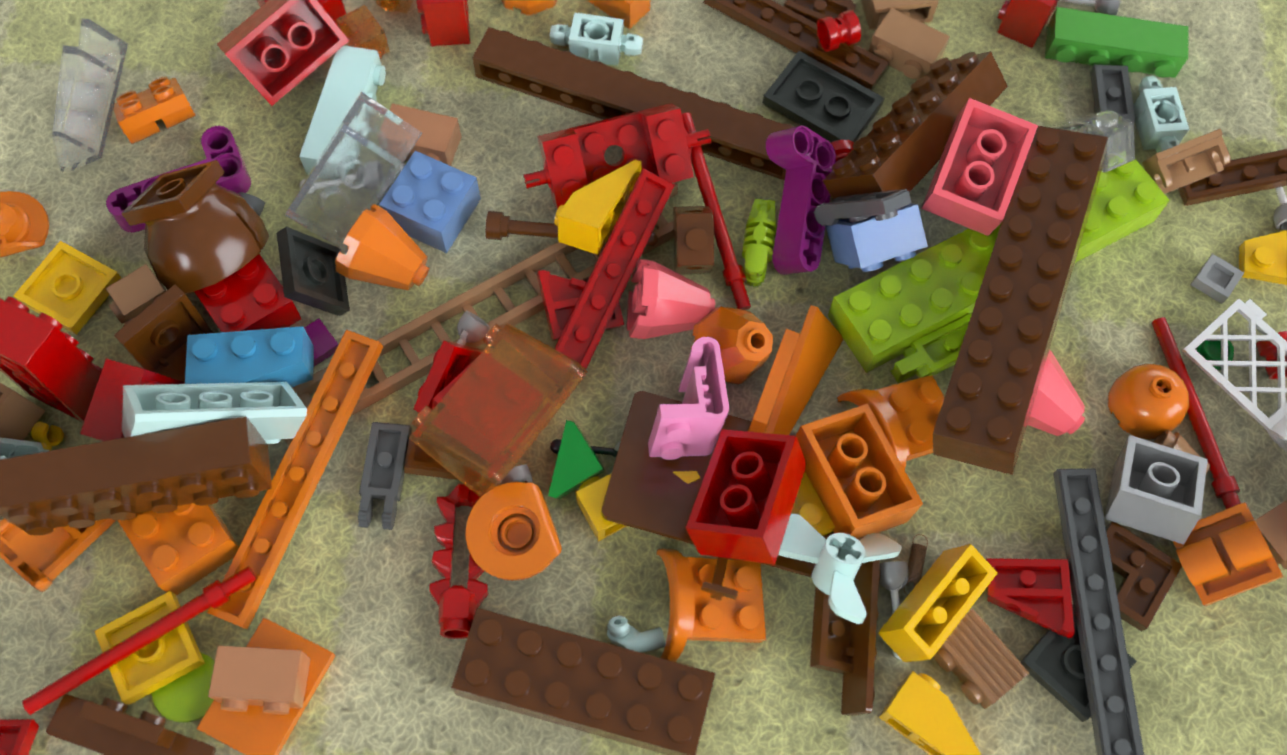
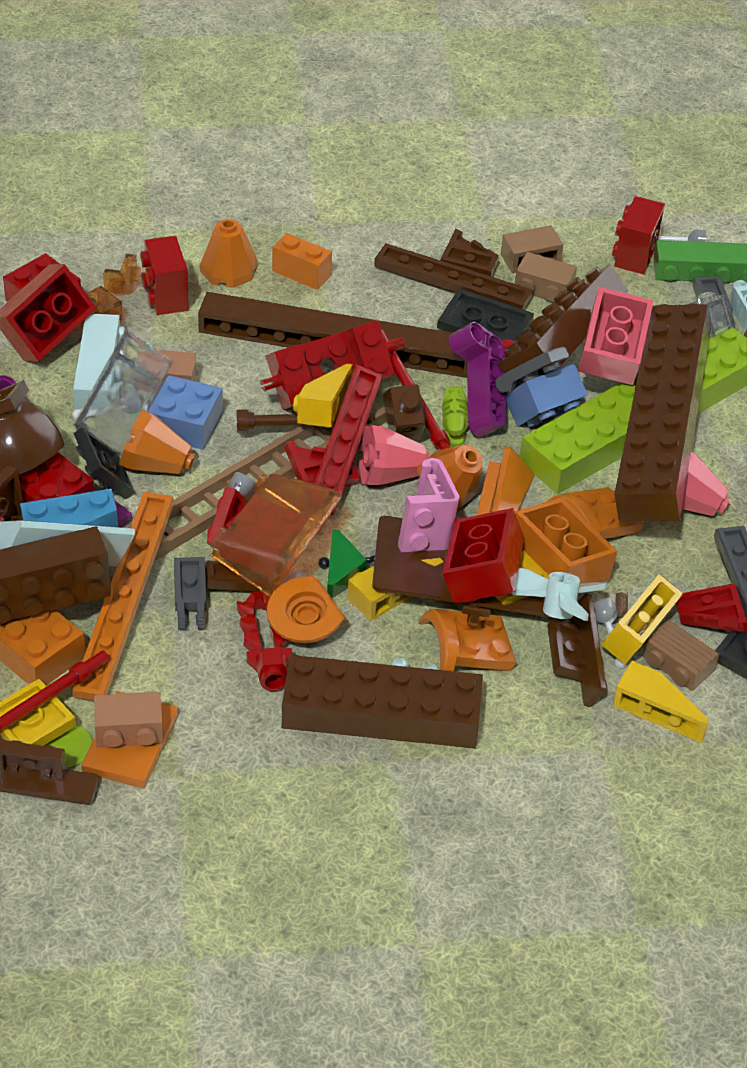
camera: 10 degrees left, 20 degrees down
(596, 38) = (295, 292): light aqua piece -> none
(837, 31) = (491, 268): red wheel -> none
(932, 352) = (601, 473): lime hinge -> none

